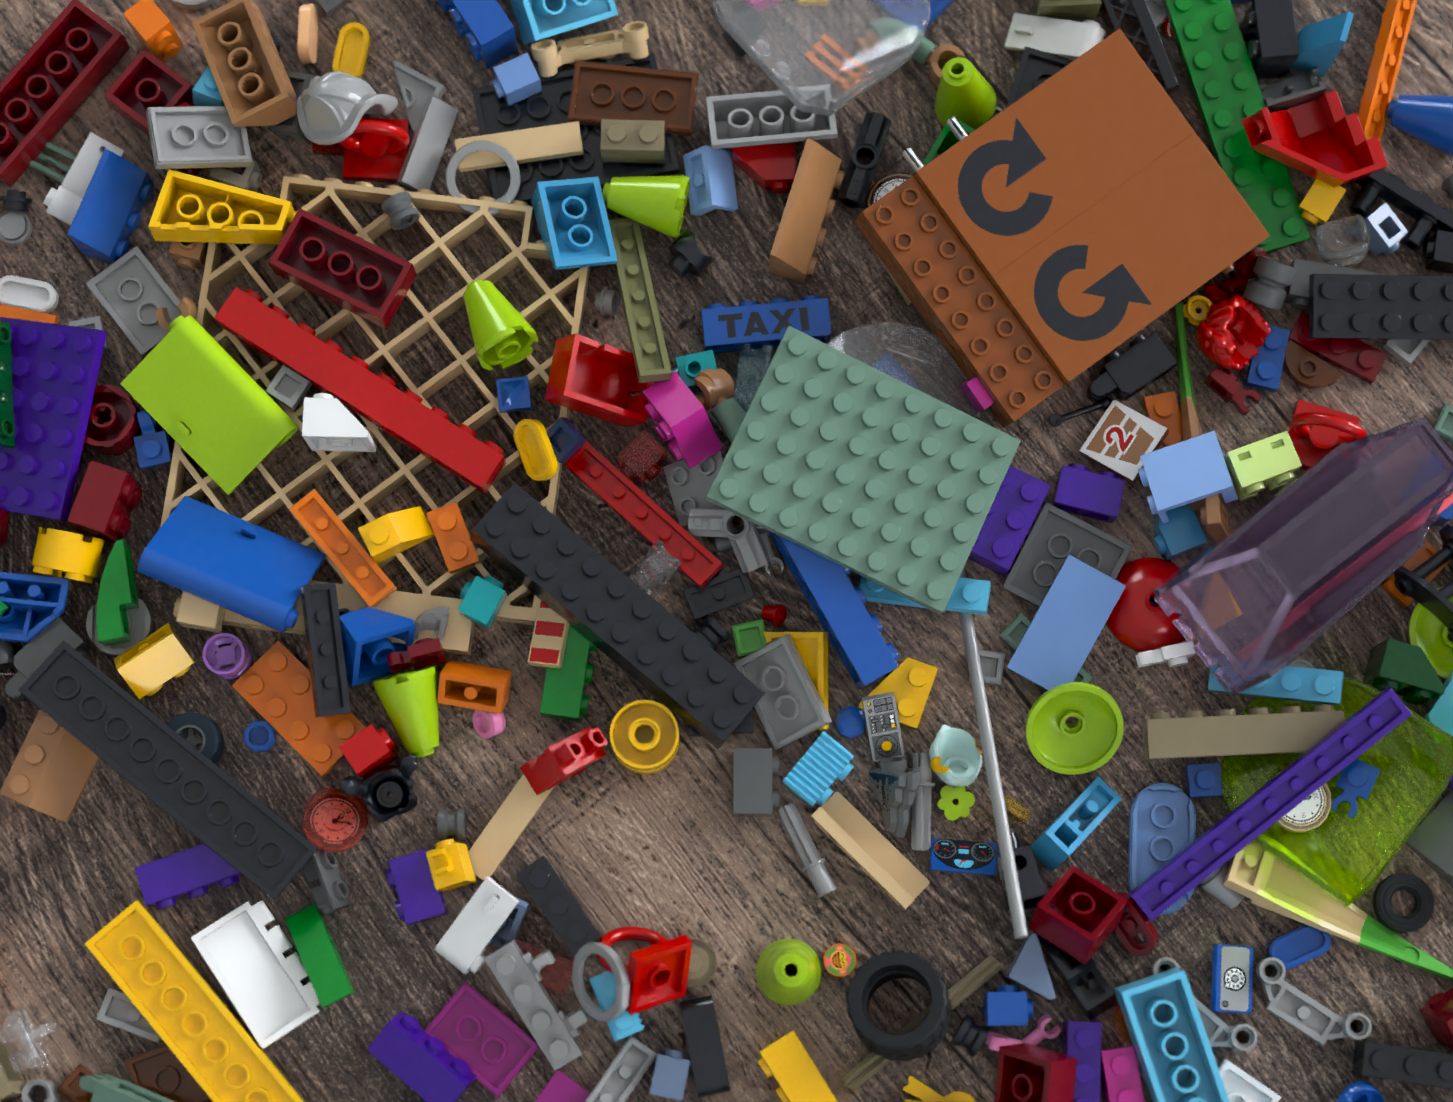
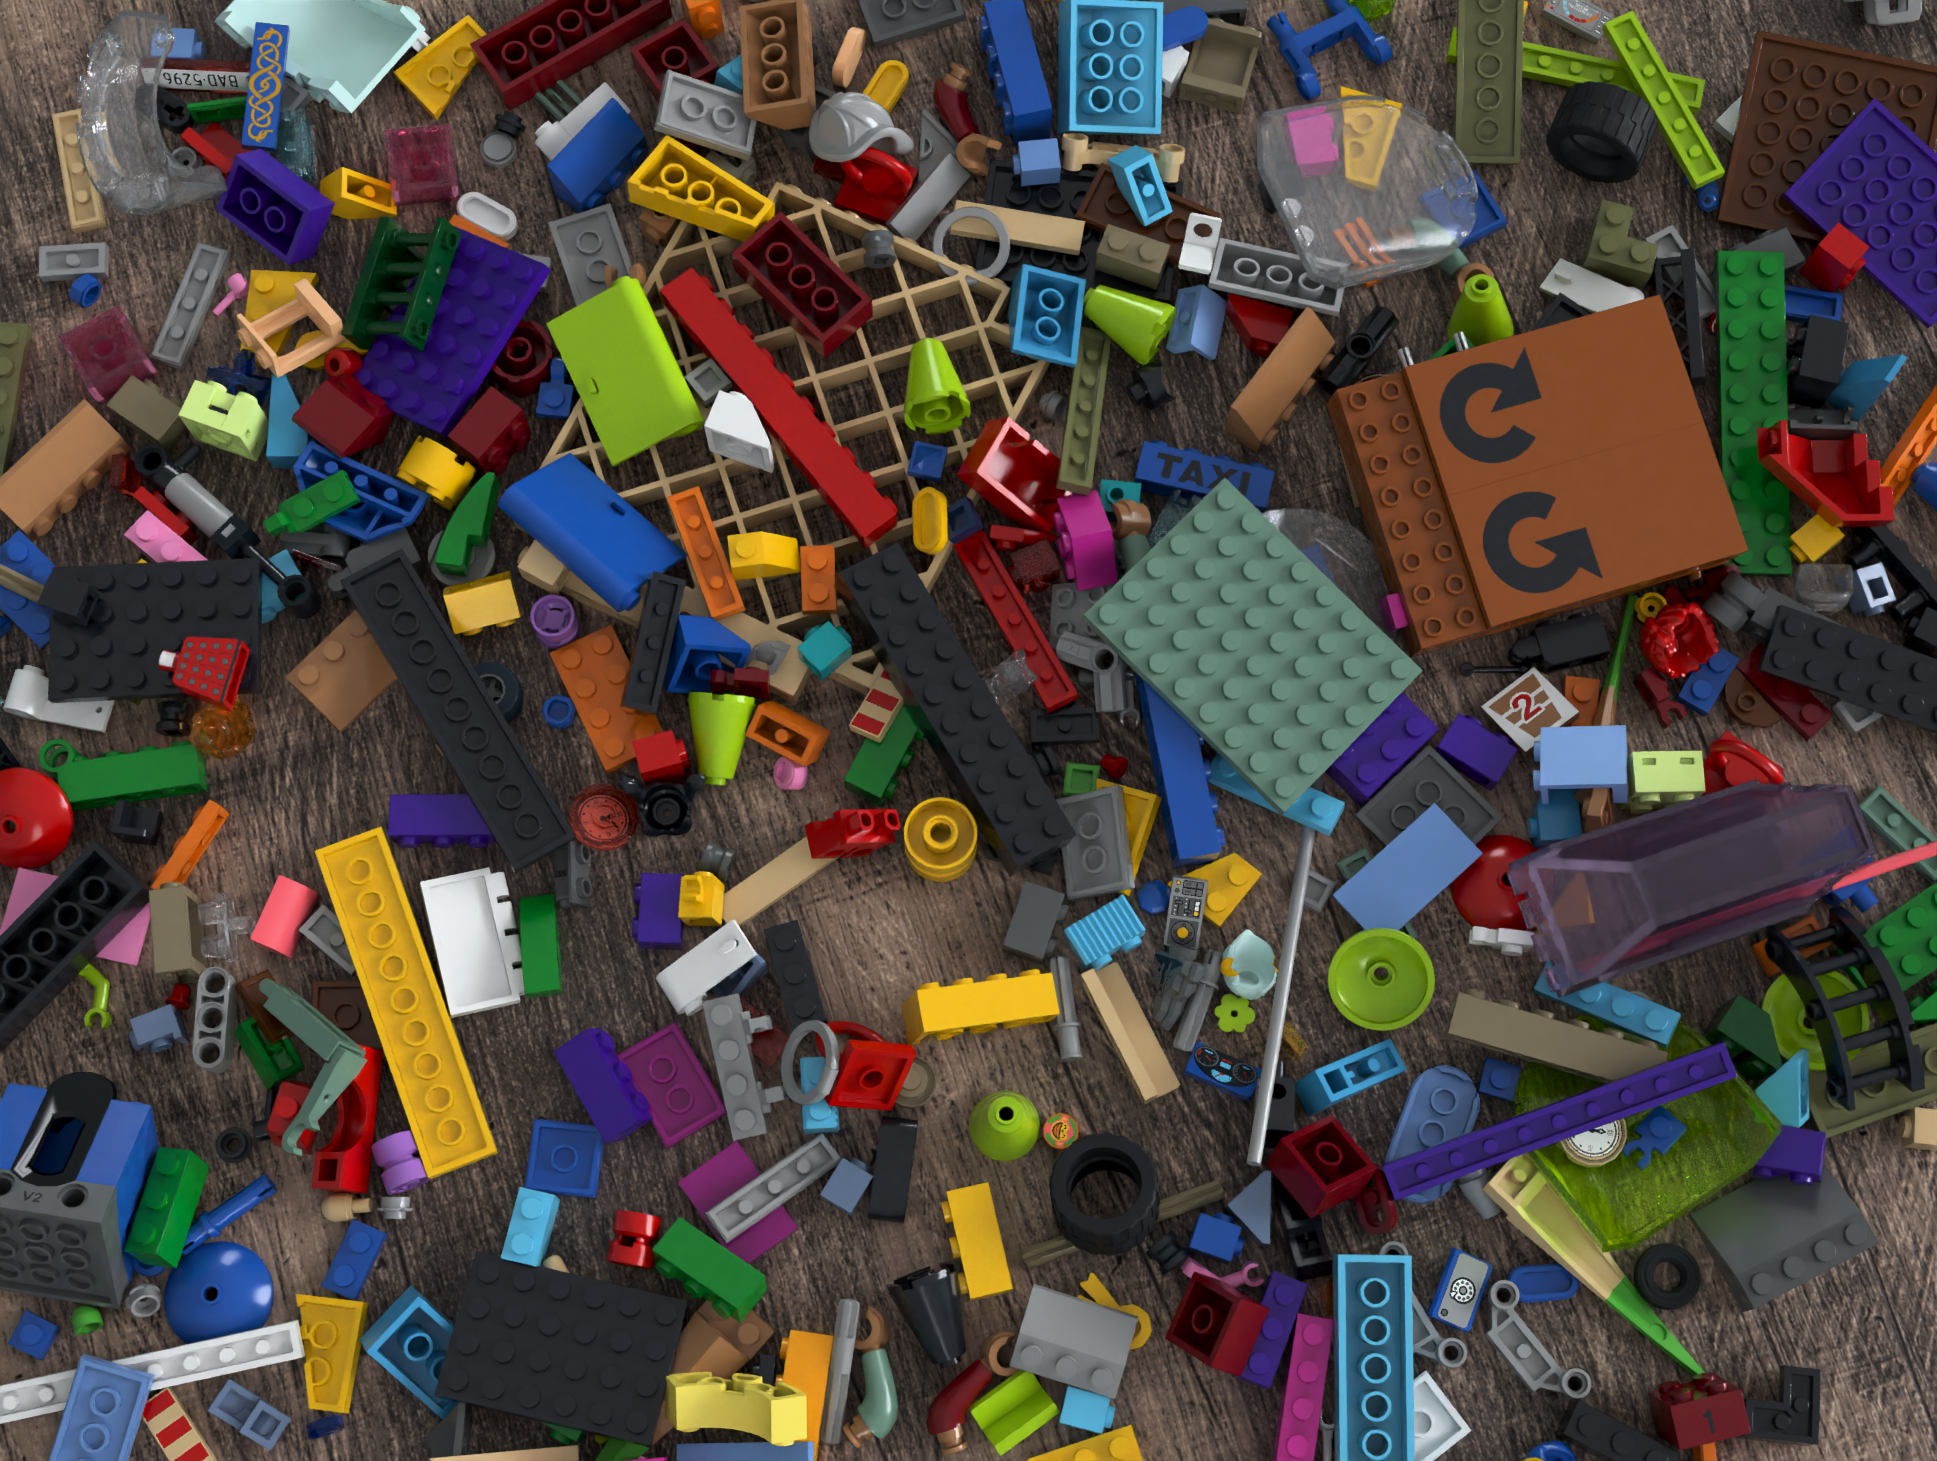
camera: 20 degrees right, 5 degrees down
(77, 1011) = (283, 916): none -> coral brick
(421, 51) = (954, 109): none -> piece
(611, 438) = (1009, 538): none -> red plate
(618, 71) = (1141, 184): none -> medium azure slope
(690, 116) = (1199, 251): none -> white bracket
(732, 875) = (979, 1005): none -> yellow wedge

